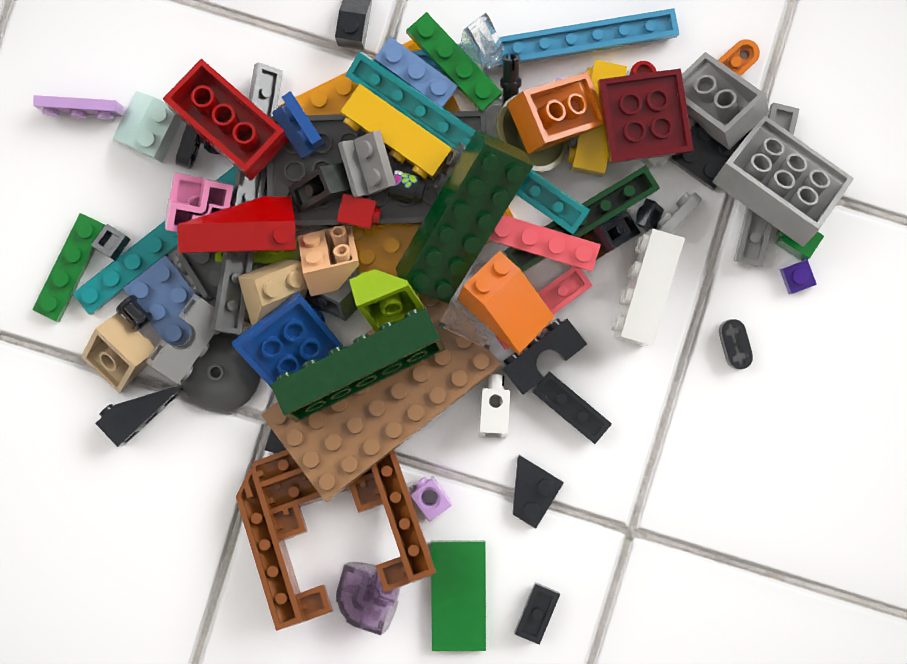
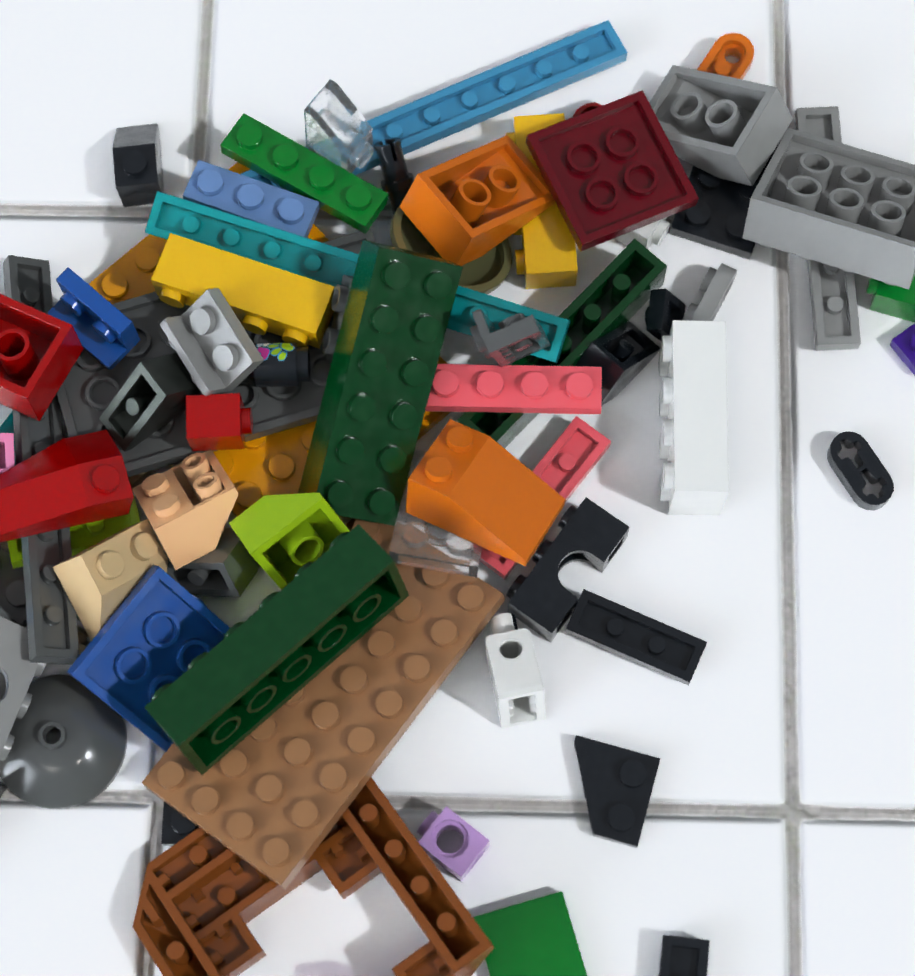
camera: 15 degrees left, 15 degrees down
(552, 217) = (511, 342): none -> dark grey bracket

